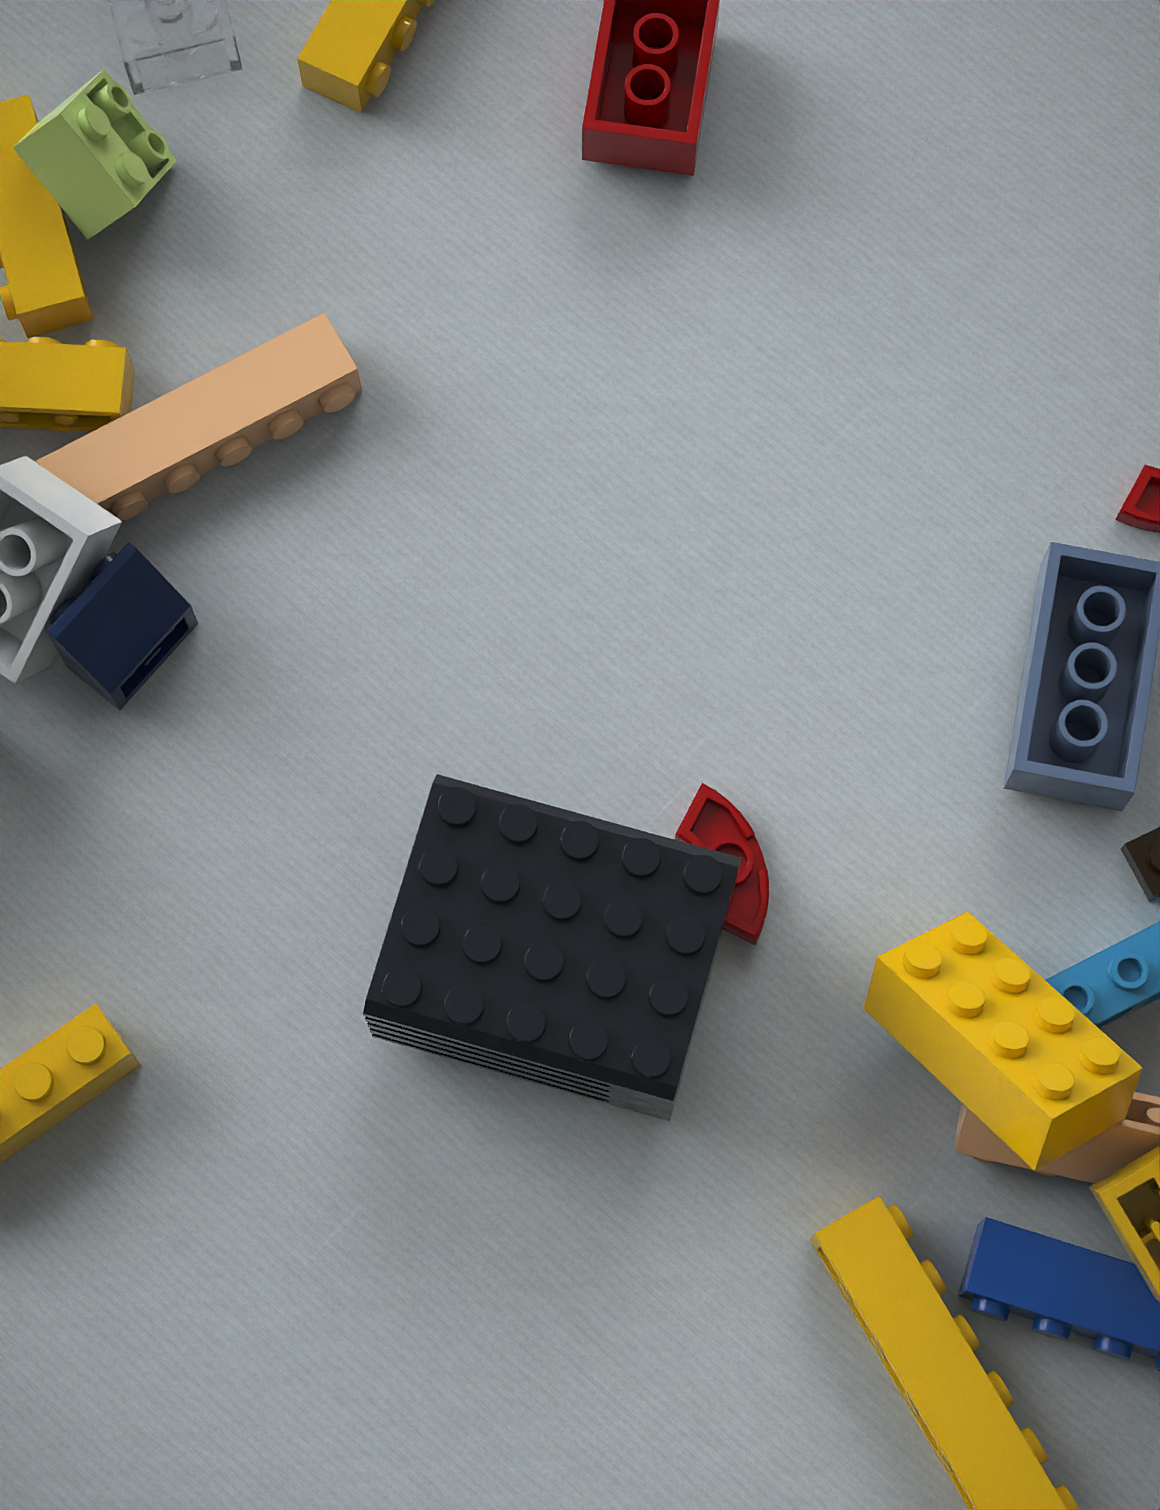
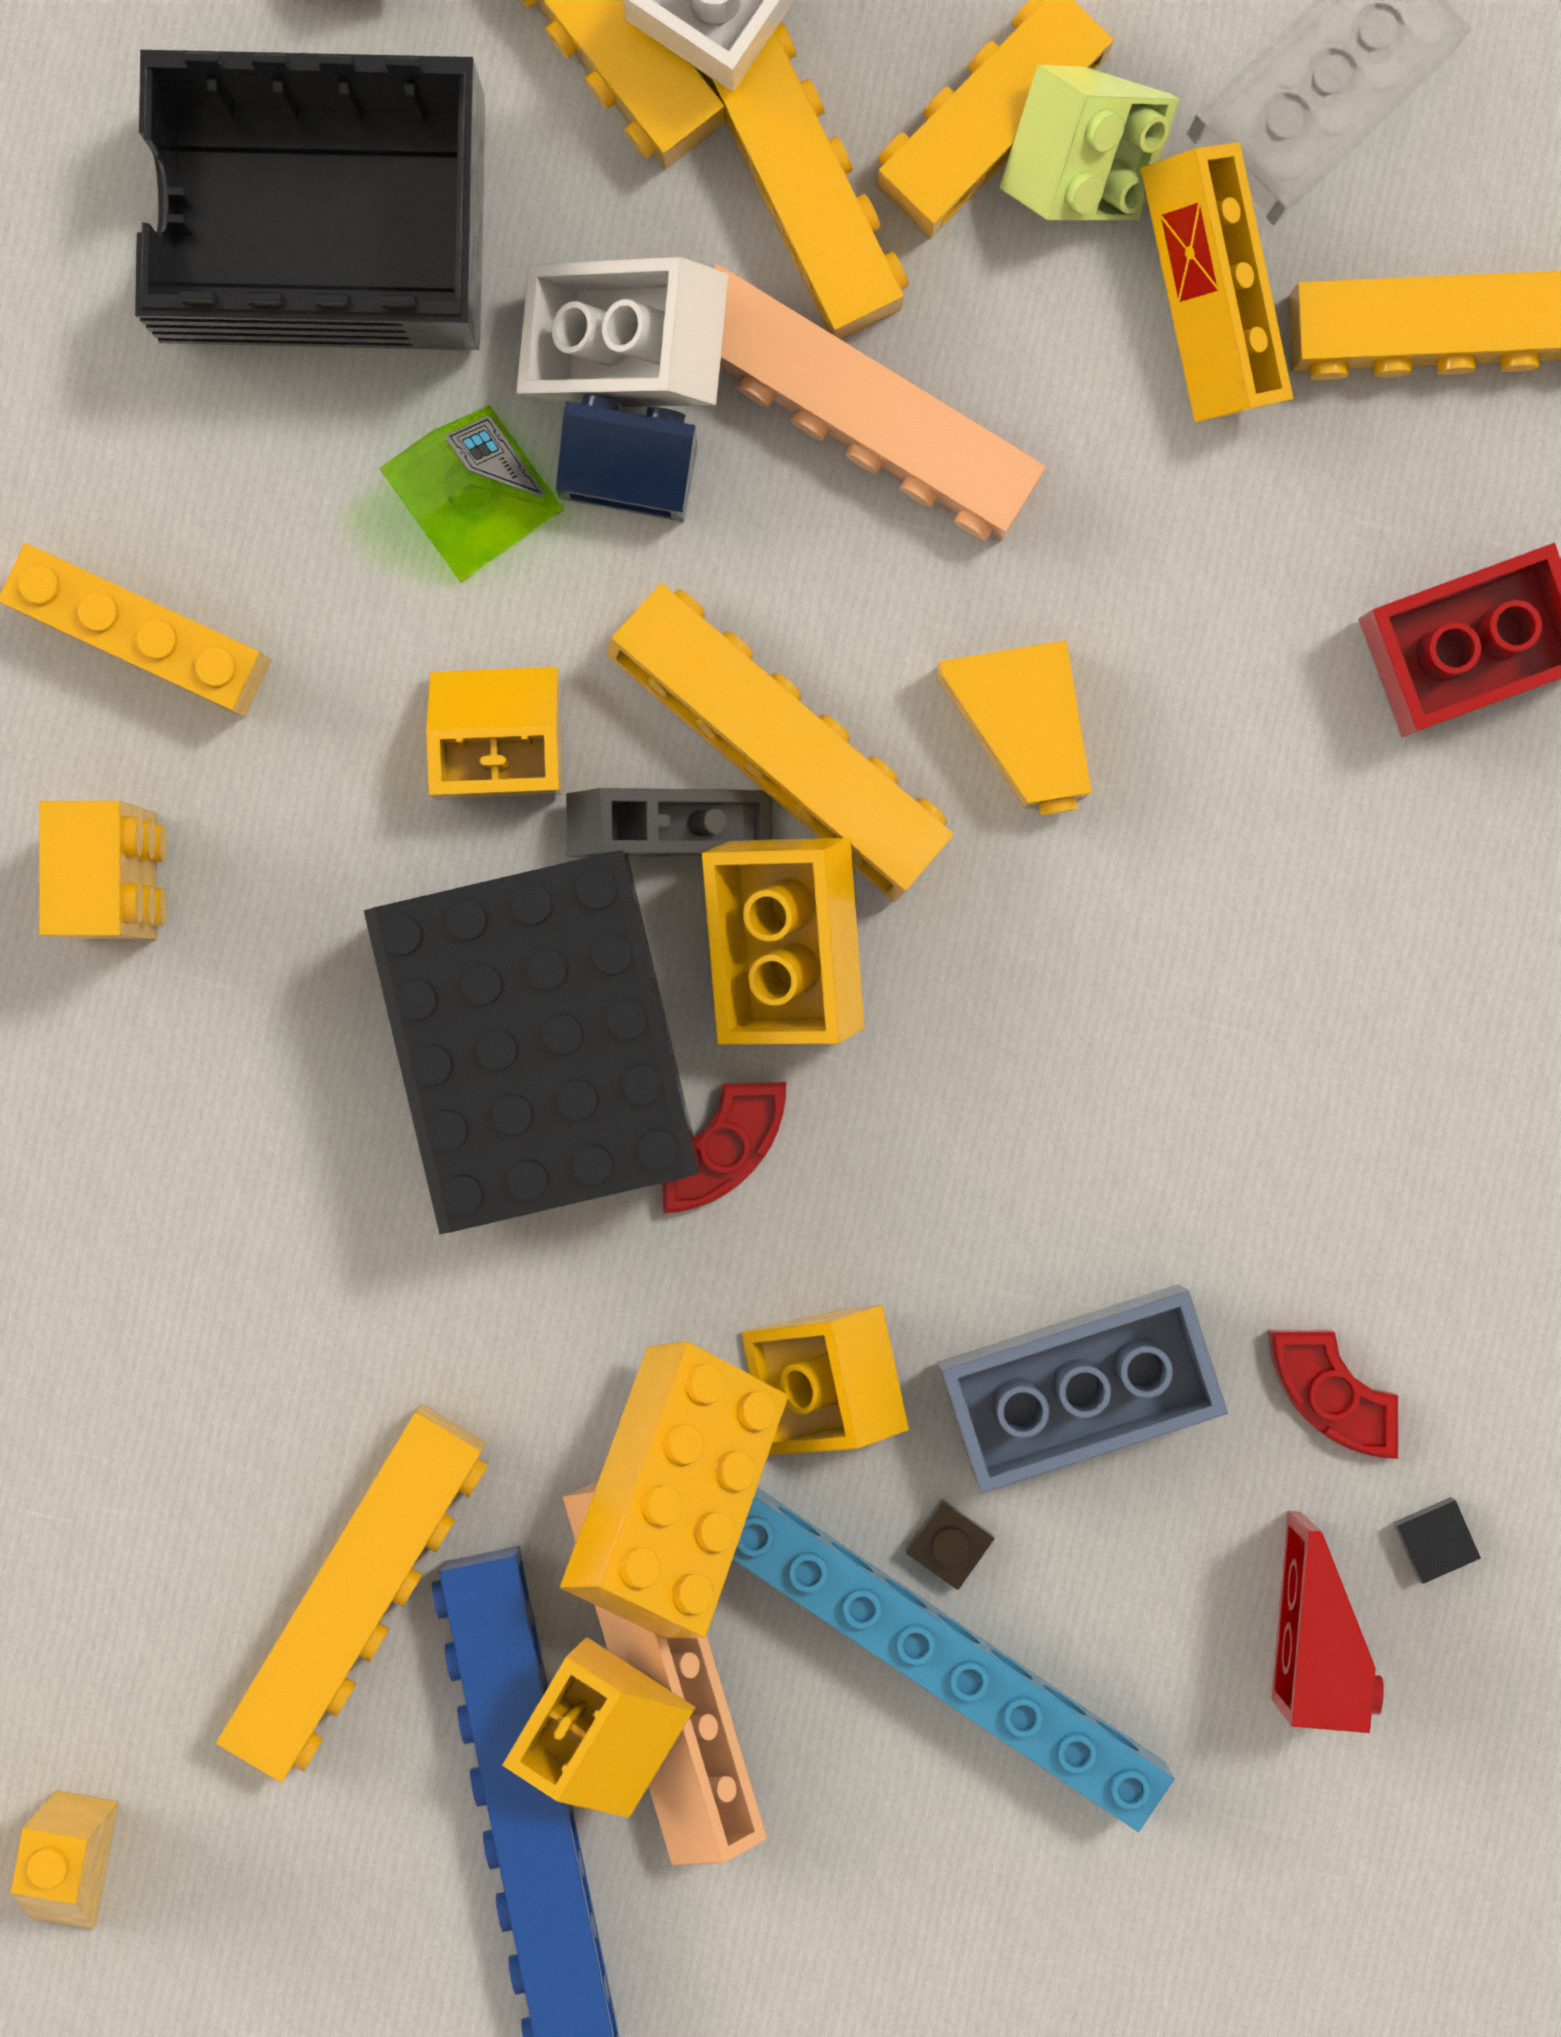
camera: 65 degrees right, 15 degrees up
(71, 775) = (471, 491): none -> clear neon green slope
(192, 1232) = (100, 871): none -> yellow brick
(260, 116) = (1216, 281): none -> yellow brick
(281, 857) = (494, 733): none -> yellow slope
(421, 635) = (778, 740): none -> yellow brick
(439, 743) = (663, 820): none -> dark grey slope
(515, 440) = (1025, 720): none -> yellow slope
(585, 709) = (783, 941): none -> yellow brick
(974, 867) = (836, 1379): none -> yellow slope

